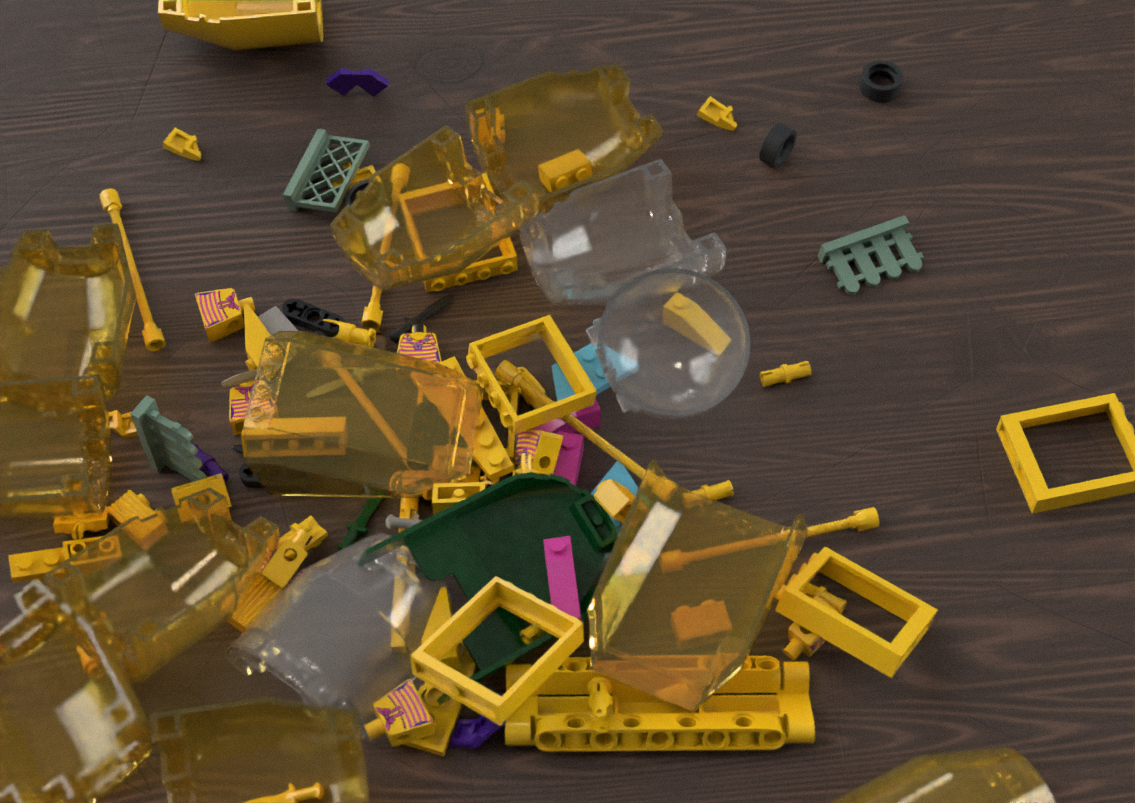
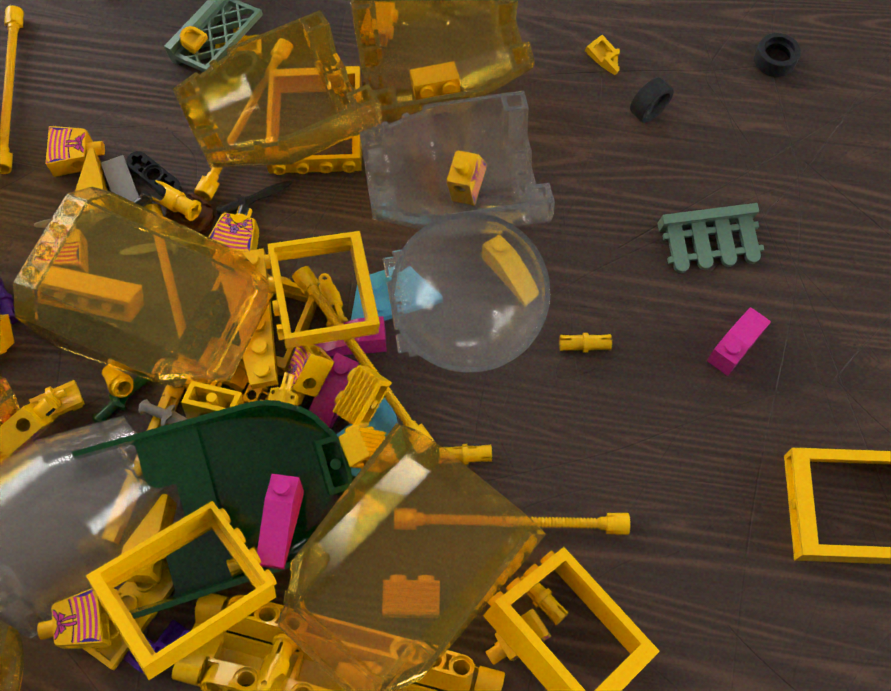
camera: 15 degrees right, 10 degrees up
(310, 181) = (192, 38): none -> yellow tile
(353, 508) = (117, 381): none -> yellow cone
(597, 459) = (361, 395): none -> yellow brick
(626, 245) = (467, 173): none -> yellow torso
(924, 341) = (738, 341): none -> dark pink slope

